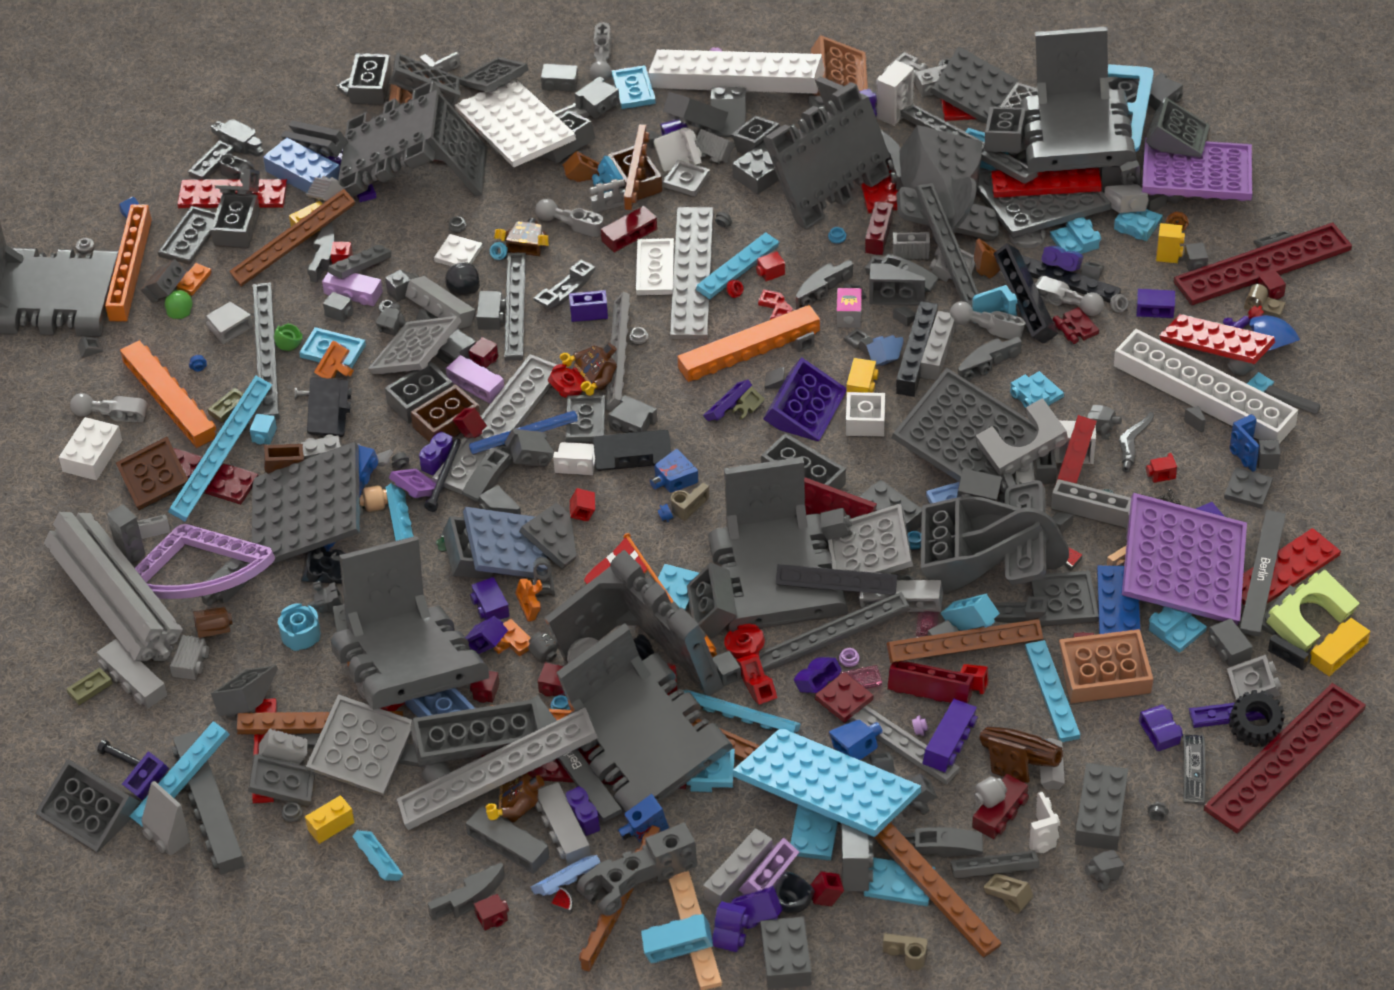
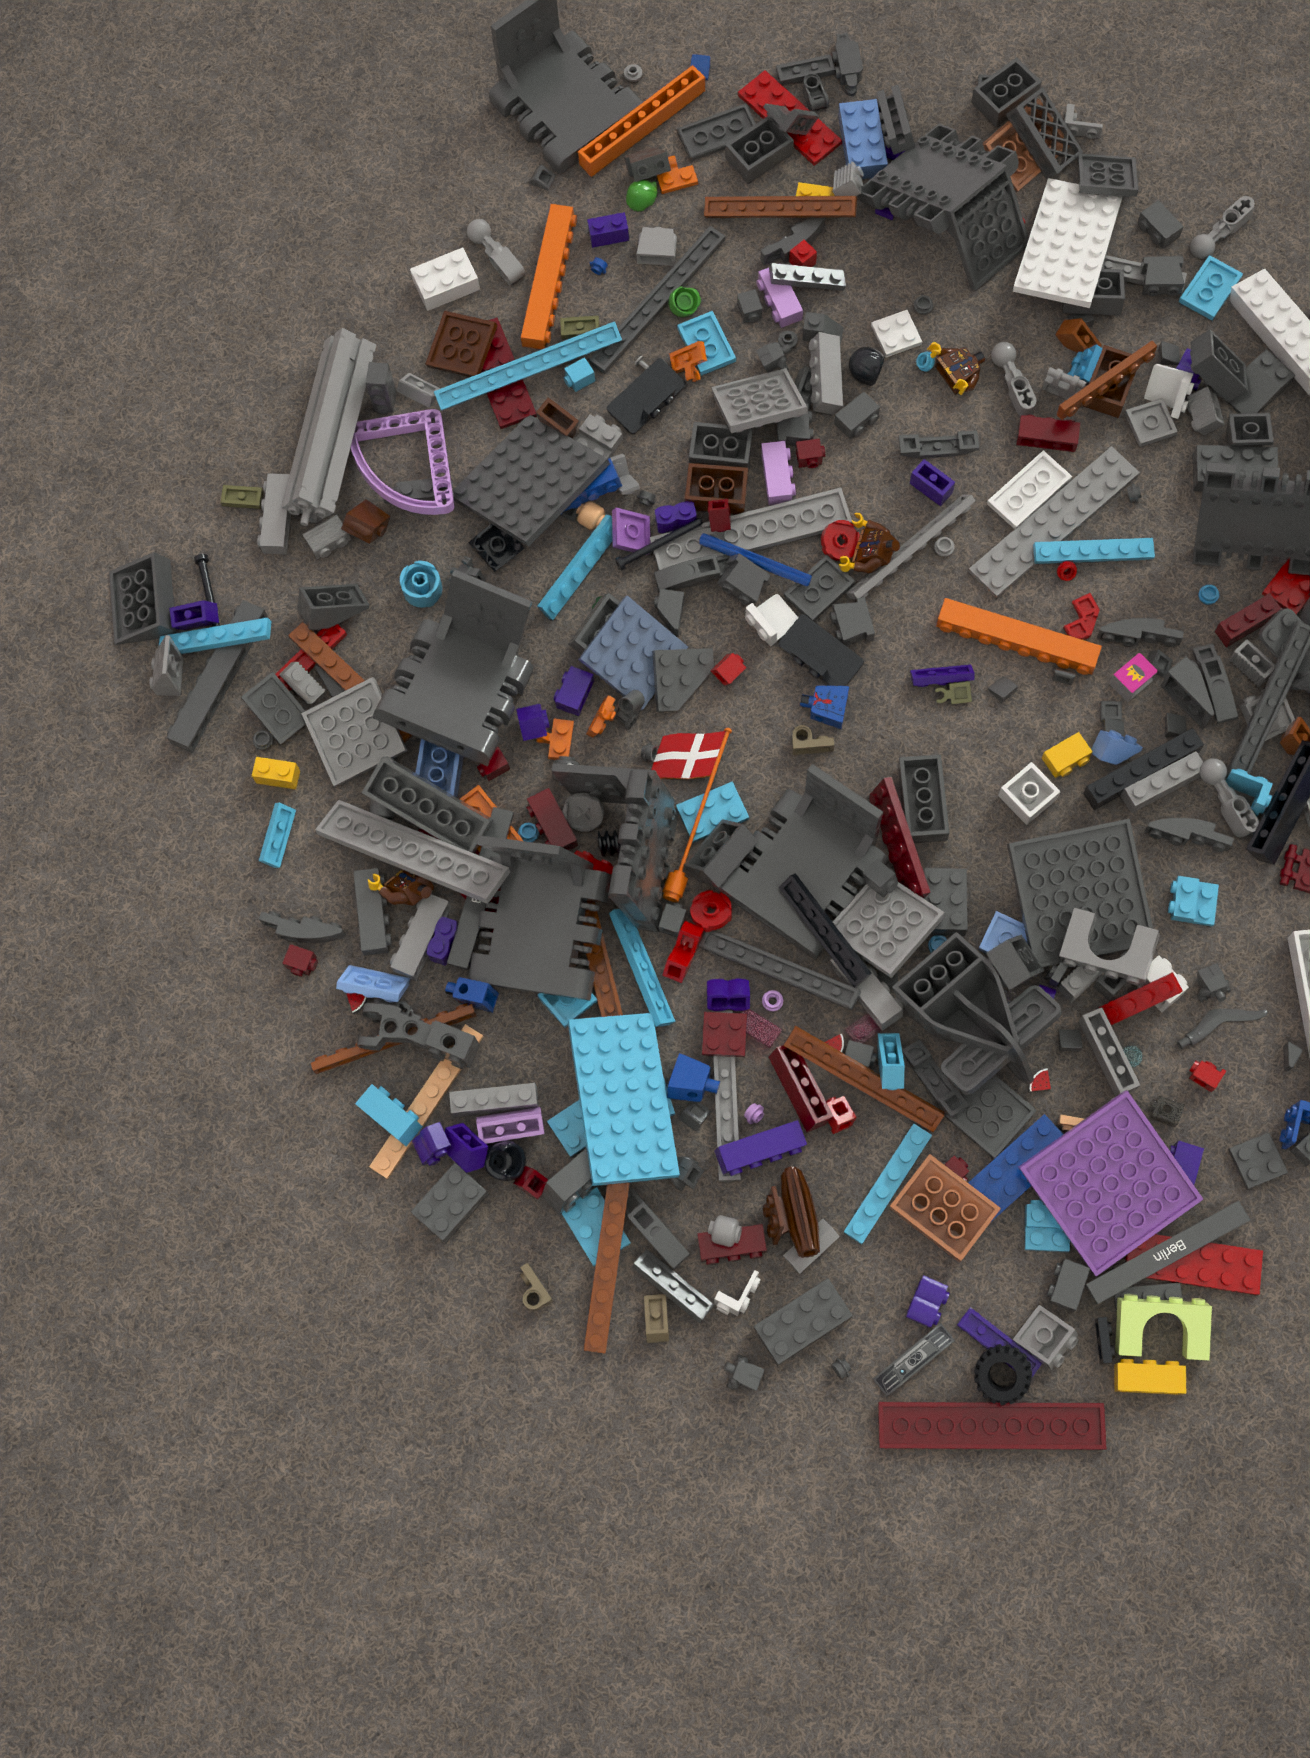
camera: 50 degrees right, 25 degrees up
(180, 337) = (608, 229): none -> dark purple brick
(515, 306) = (883, 427): tile -> none
(665, 513) = (783, 735): blue plate -> none
(770, 266) = (1118, 576): red brick -> none
(805, 402) = (999, 735): dark purple slope -> none

